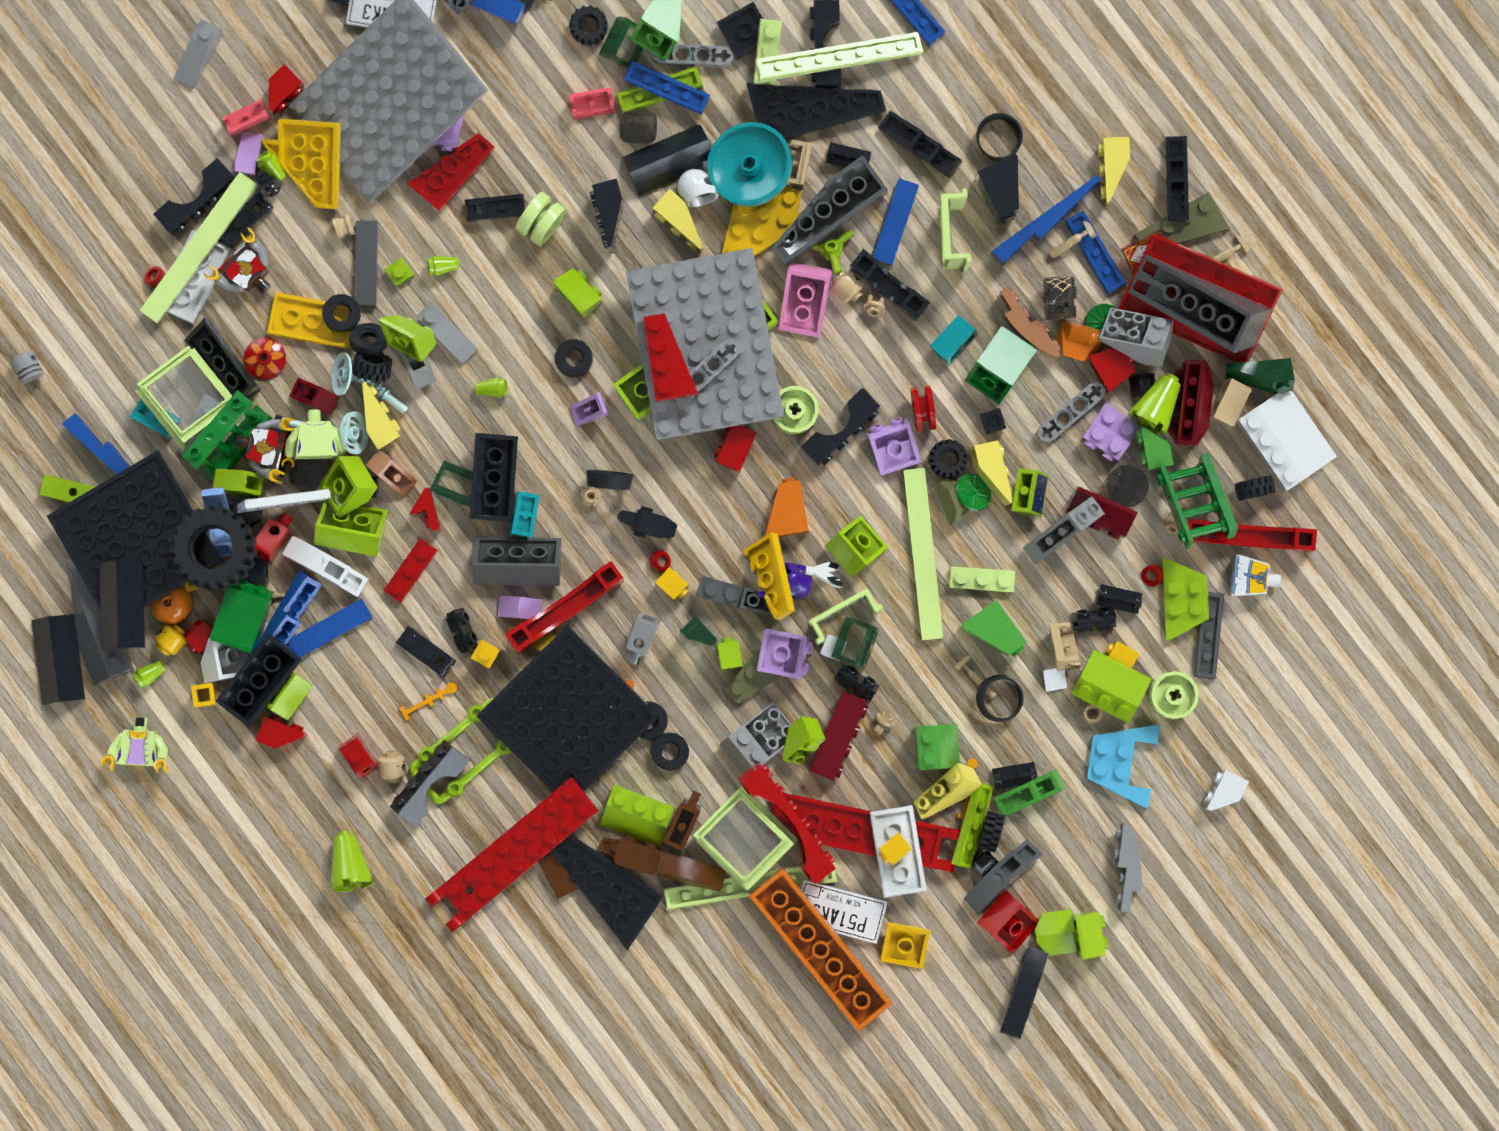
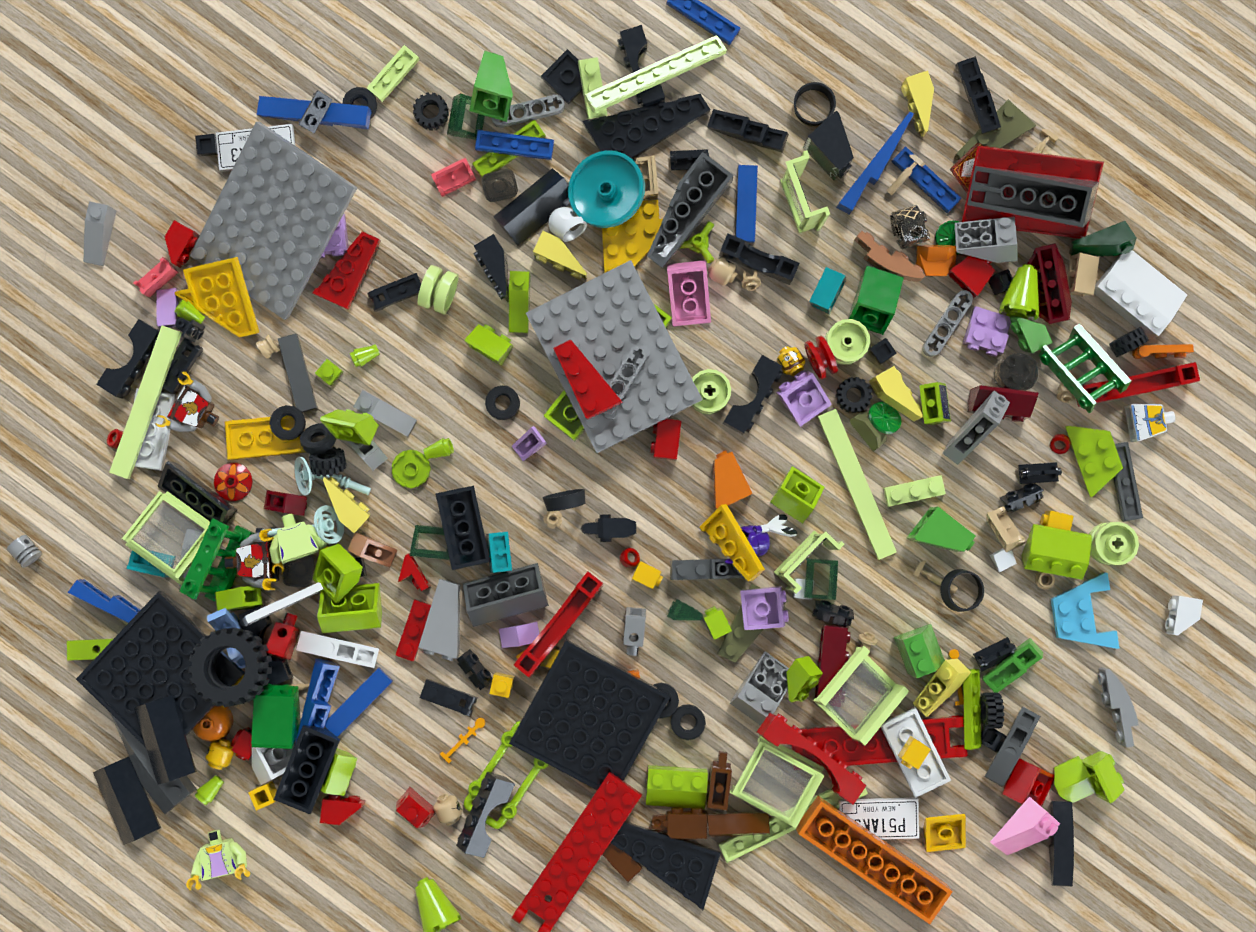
camera: 20 degrees left, 0 degrees up
(443, 571) = (443, 622): none -> light grey slope
(456, 399) = (411, 469): none -> lime tile
(622, 256) = (519, 301): none -> lime slope
(857, 775) = (860, 697): none -> piece
(892, 403) = (791, 360): none -> yellow head
(968, 396) = (855, 334): none -> yellowish green wheel
(988, 963) = (1025, 828): none -> bright pink slope
(1289, 508) = (1162, 351): none -> orange plate

